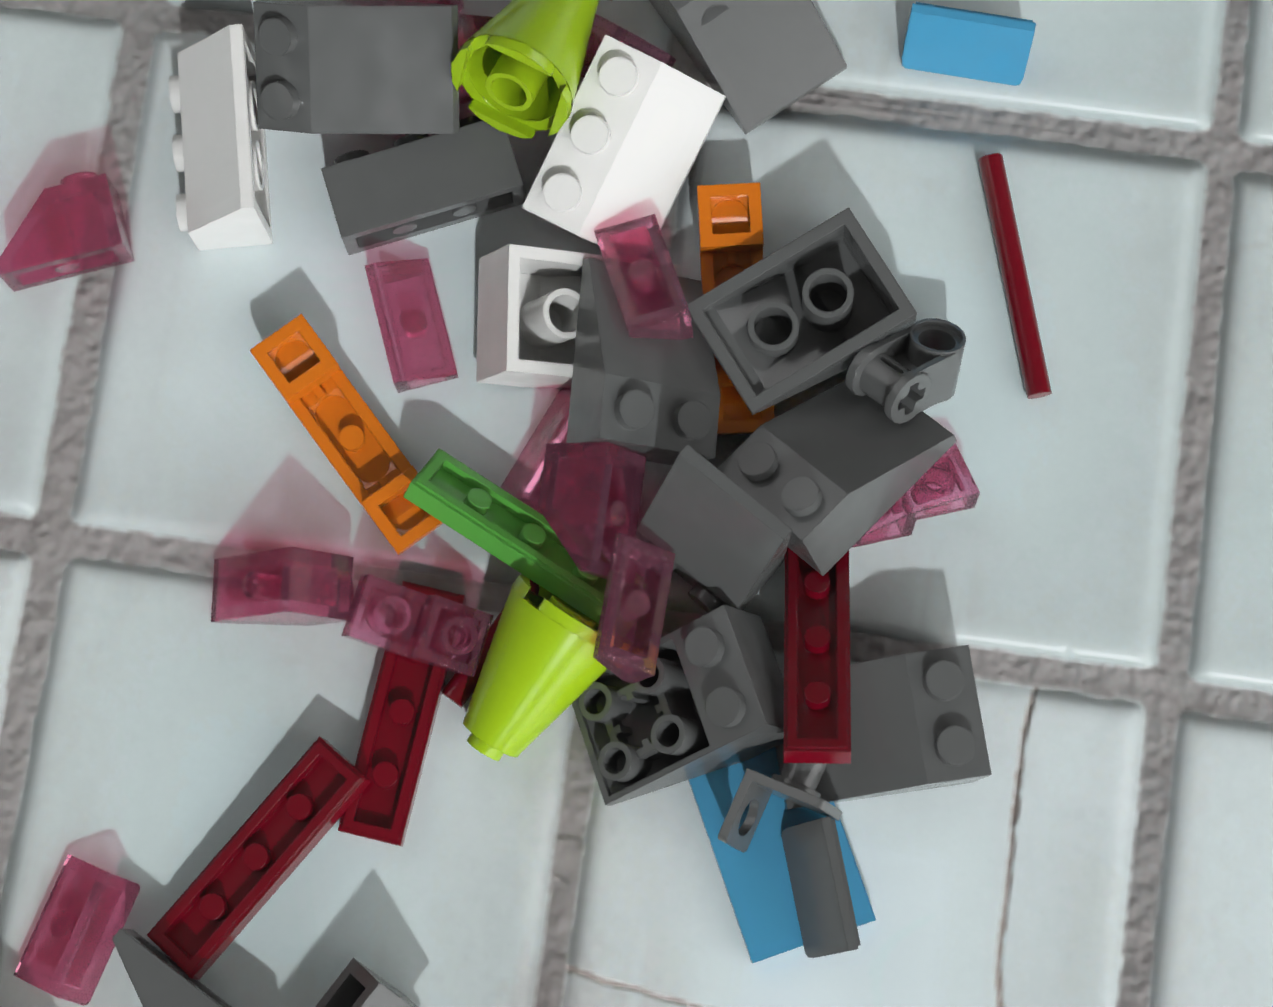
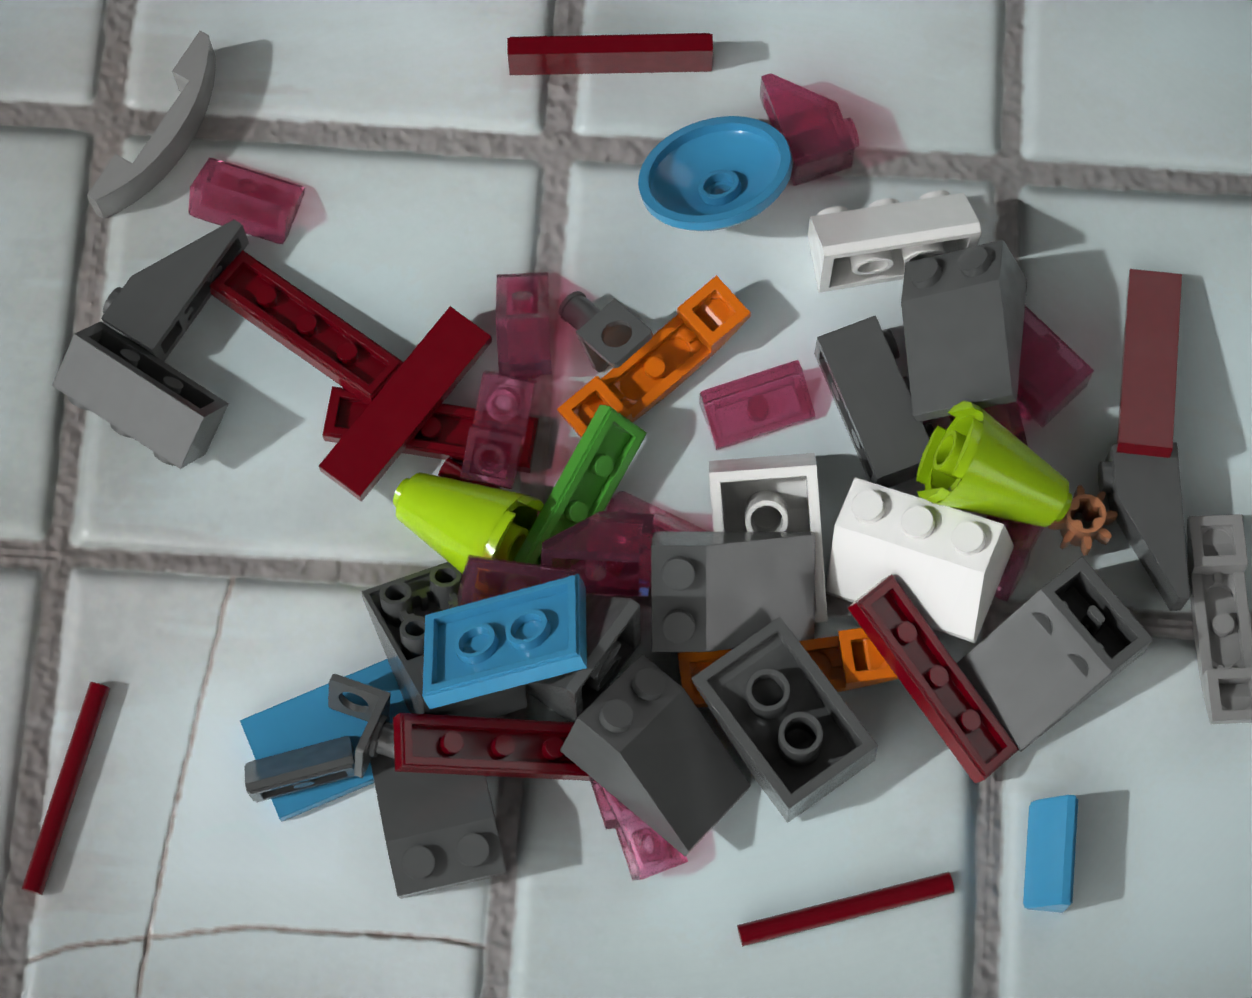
camera: 85 degrees right, 5 degrees down
(96, 334) = (715, 173): none -> dark azure dish
(305, 487) = (606, 334): none -> dark grey bracket
(372, 737) = (405, 403): none -> dark red tile
(644, 280) = (799, 582): clear pink slope -> none
(710, 616) = (505, 641): none -> dark azure tile
(762, 148) = (933, 679): none -> dark red tile
(910, 368) = (744, 815): dark grey piece -> none

